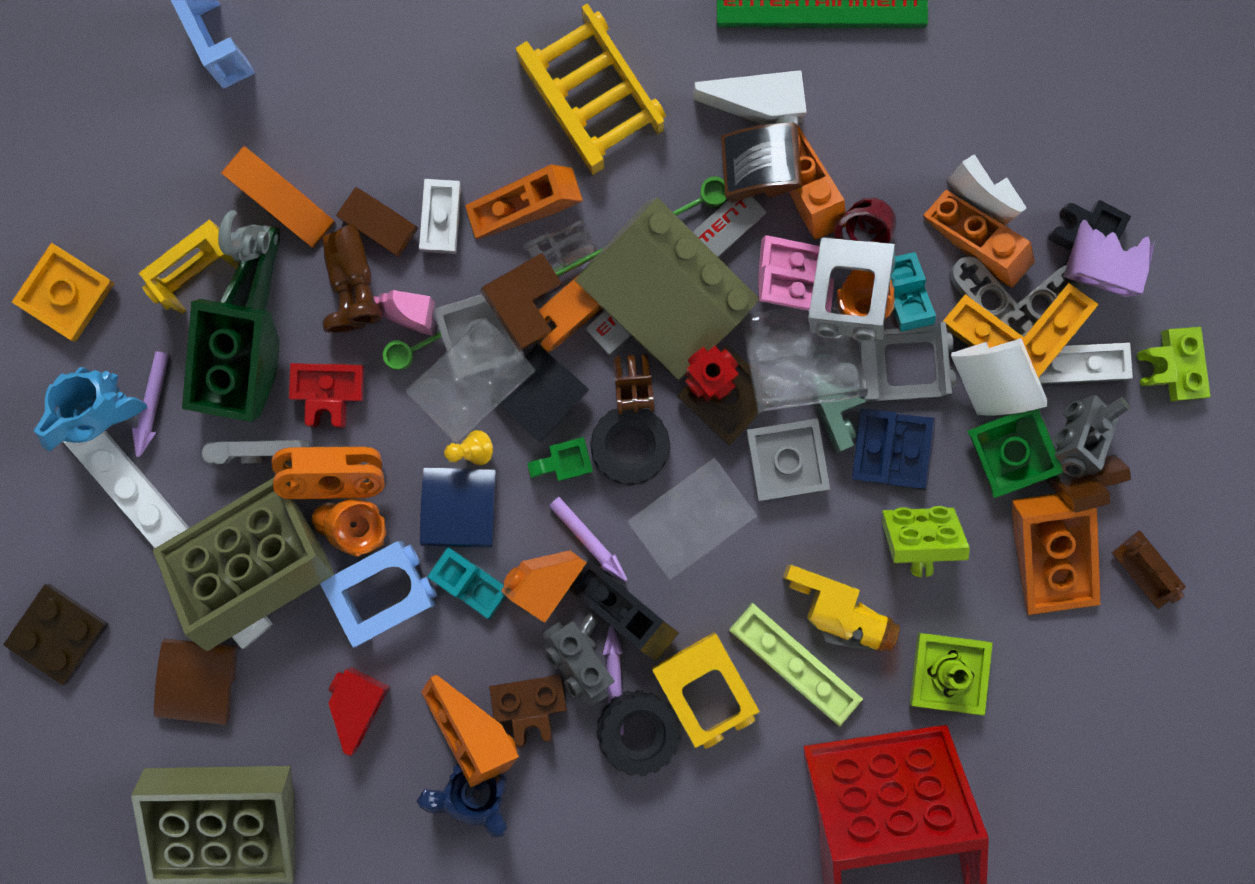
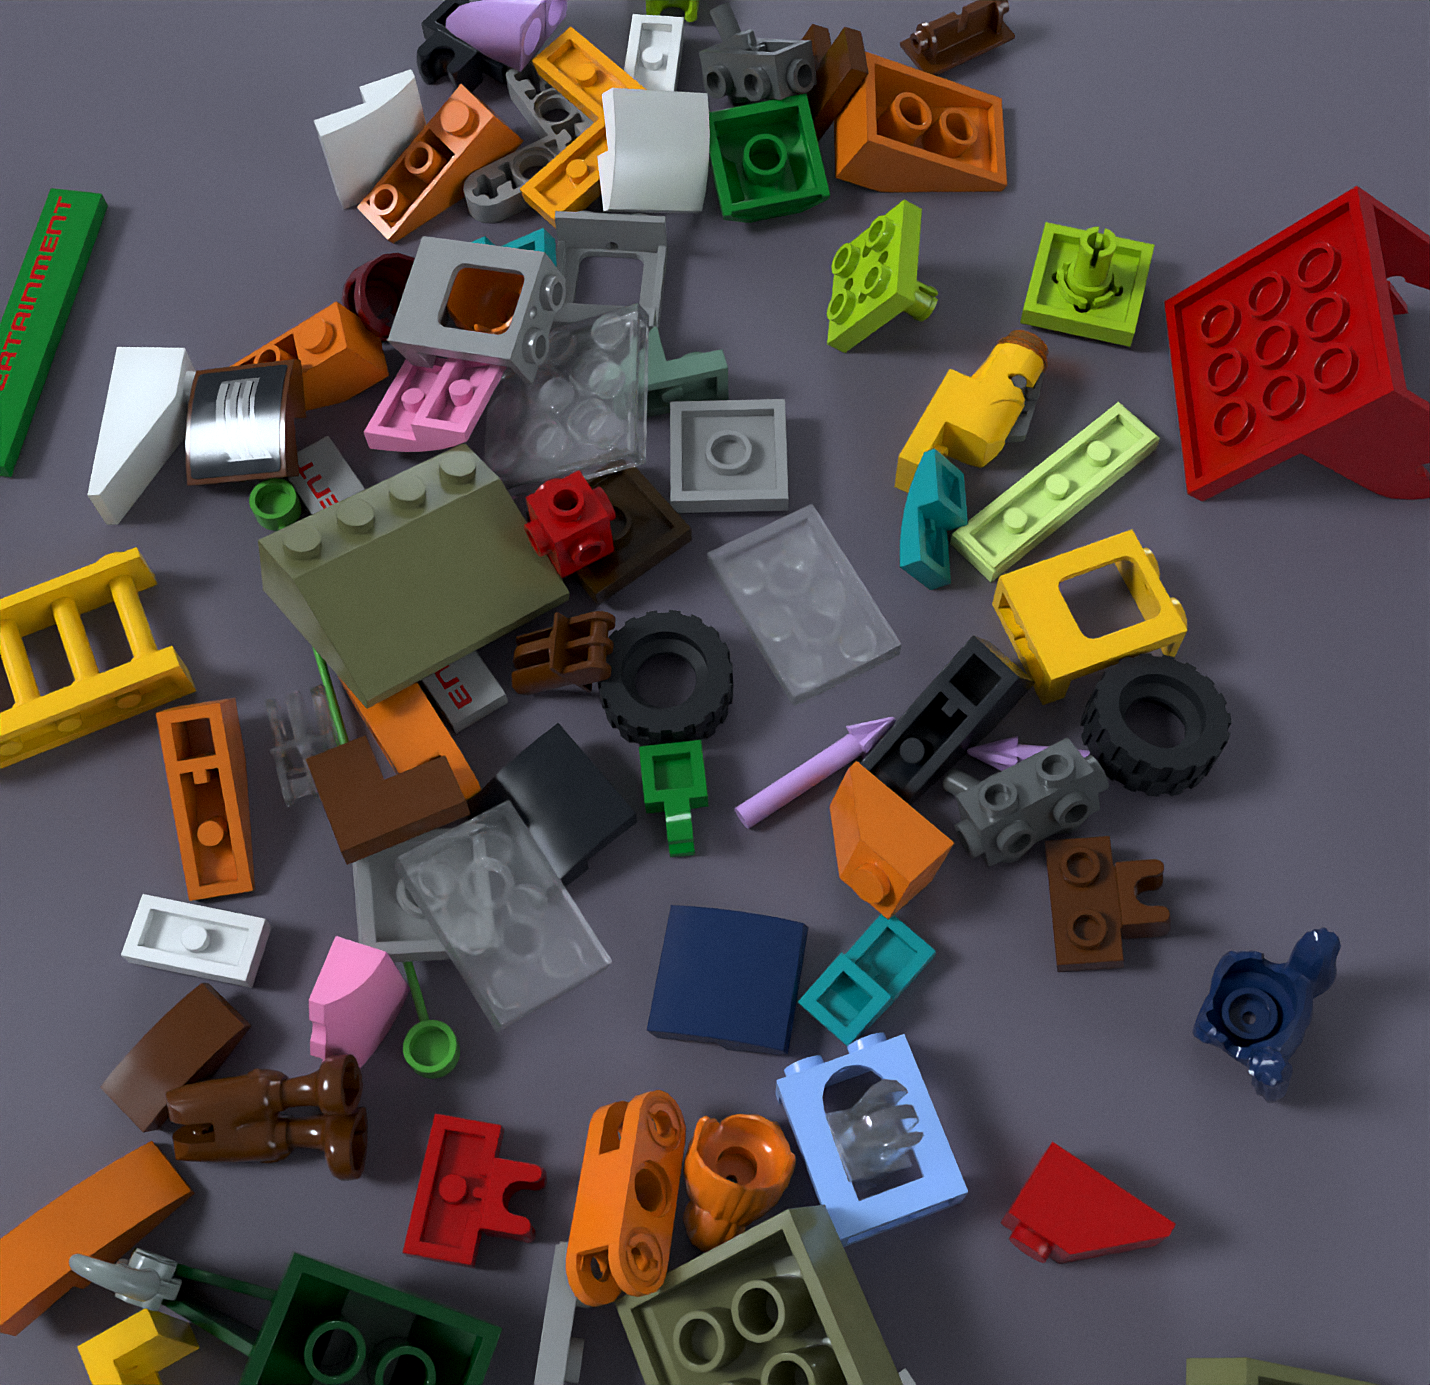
camera: 80 degrees left, 20 degrees down
(373, 595) = (875, 1135): none -> clear arm
(471, 733) = (1136, 1004): orange slope -> none
(475, 448) = (627, 932): yellow piece -> none
(768, 589) = (932, 508): none -> teal slope
(893, 449) = (737, 311): dark blue slope -> none

